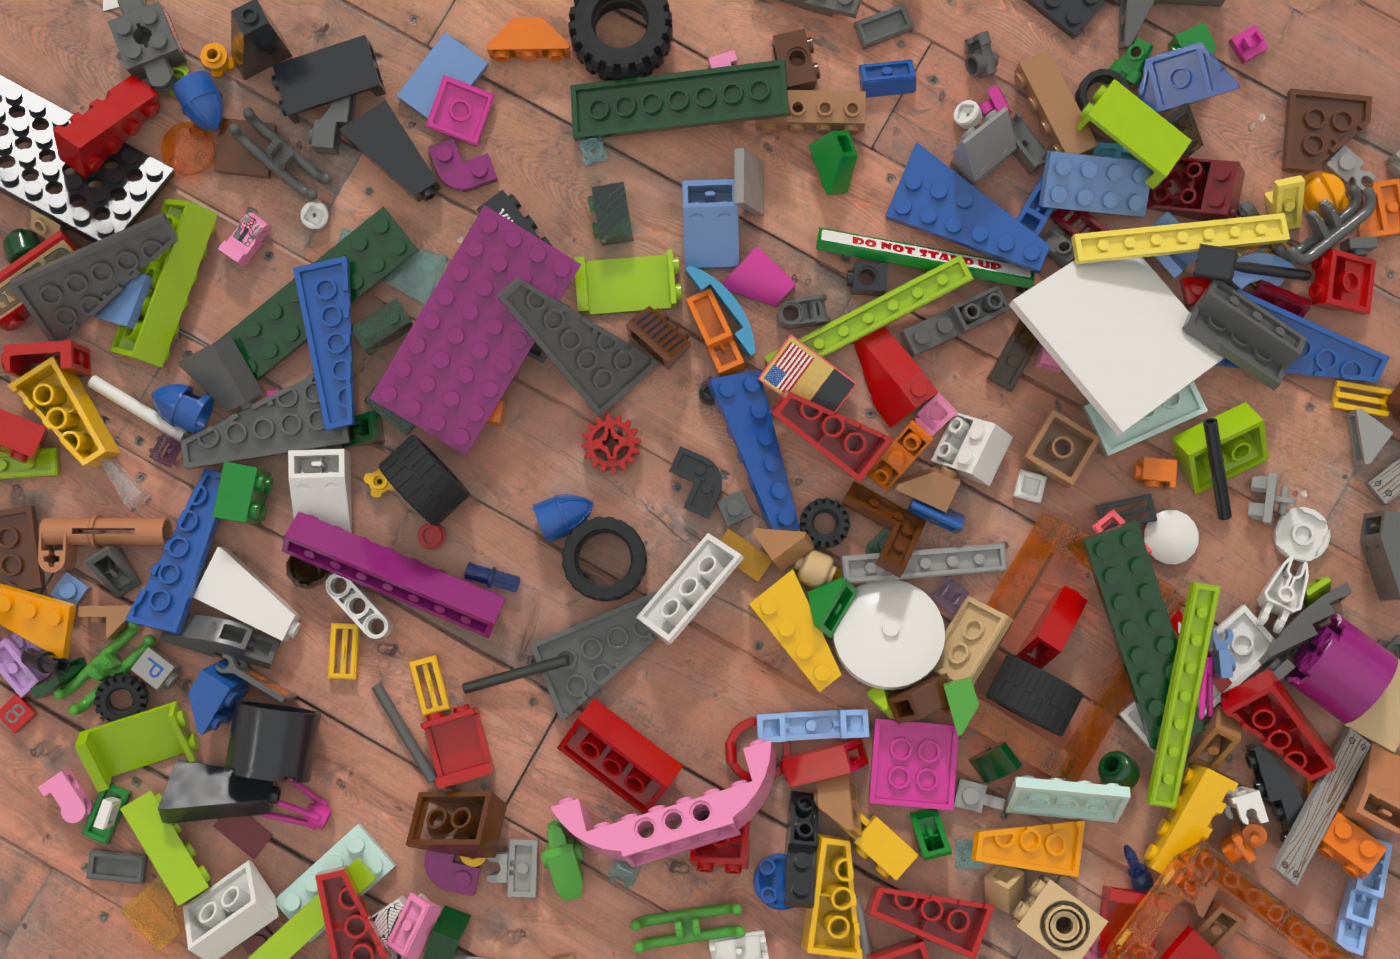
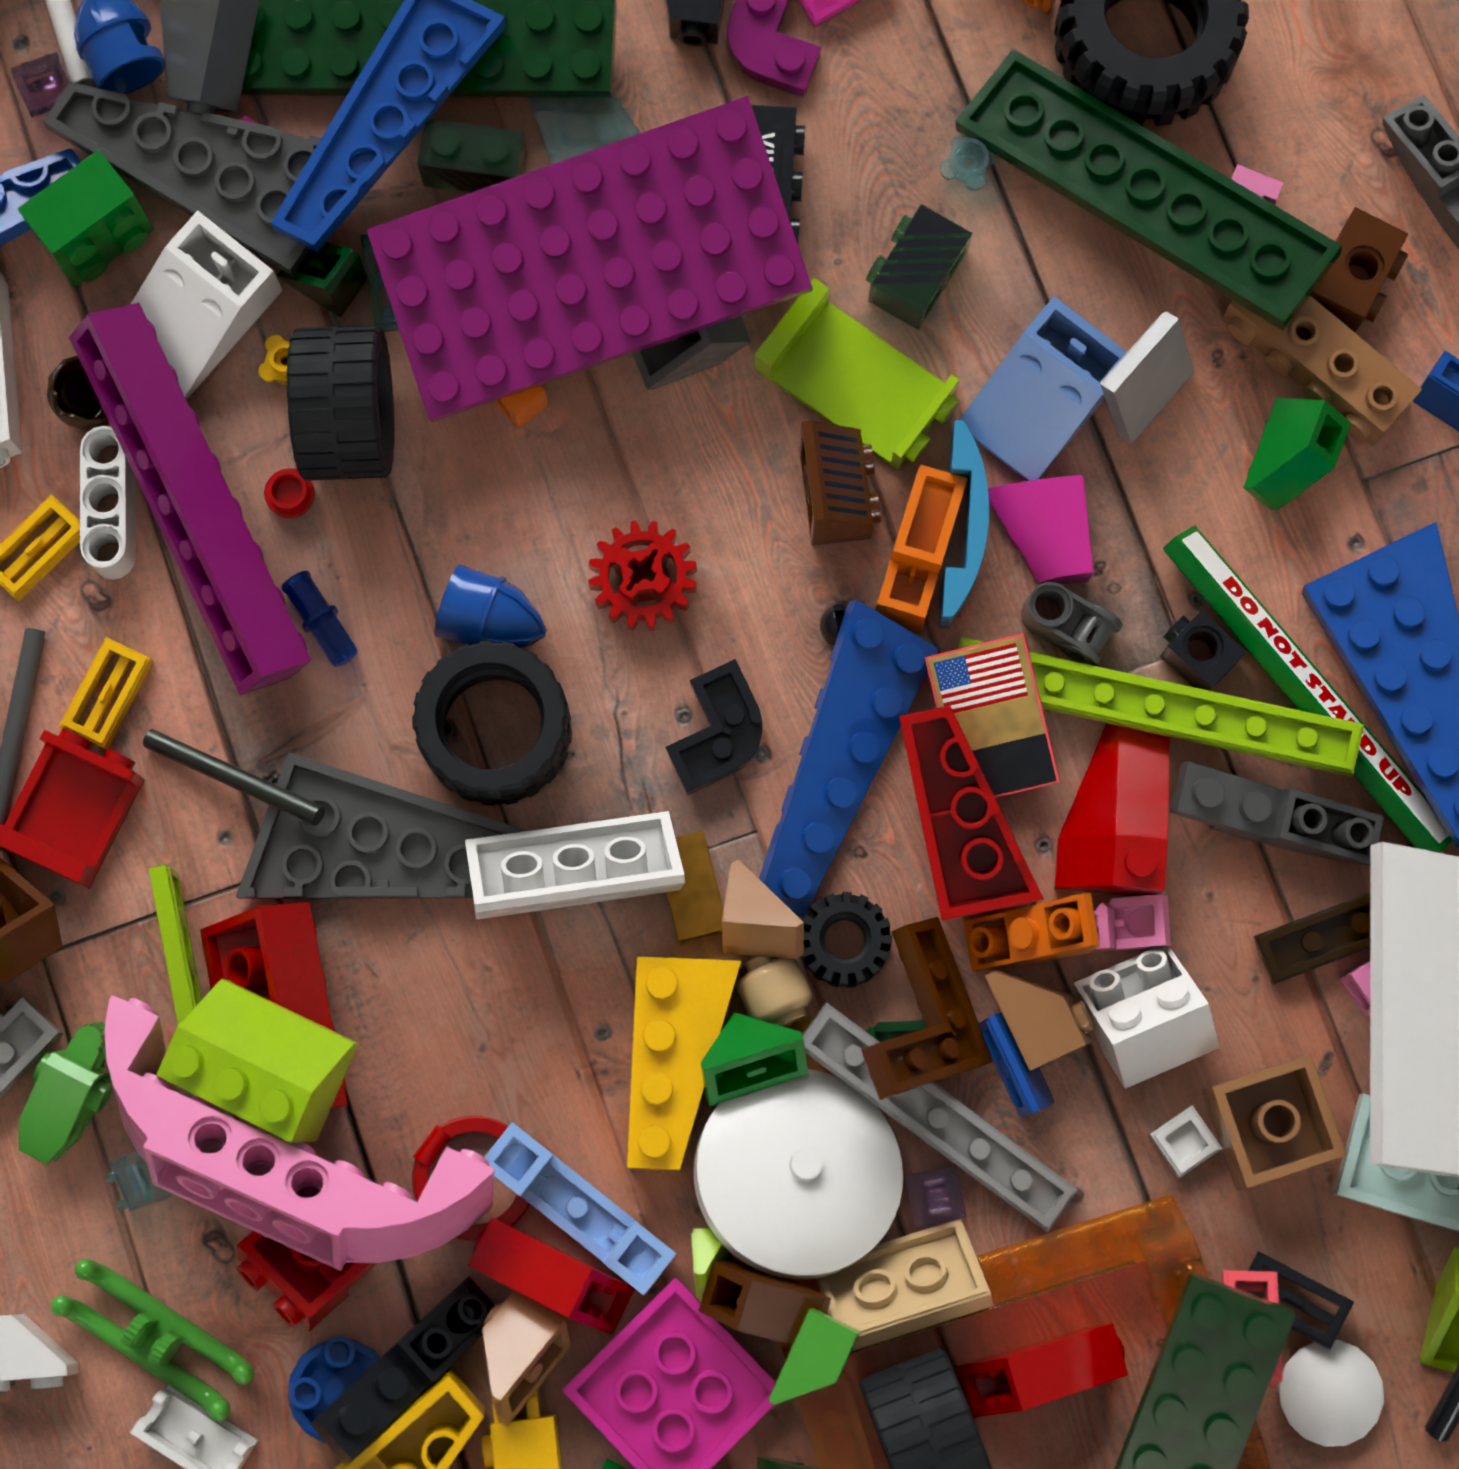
camera: 40 degrees right, 5 degrees down
(565, 770) = (175, 939): none -> lime tile
(587, 355) = (714, 425): dark grey wing -> none
(635, 781) = (259, 1061): none -> lime slope
(734, 508) = (736, 811): dark grey plate -> none
(1155, 472) = (1387, 1278): orange brick -> none

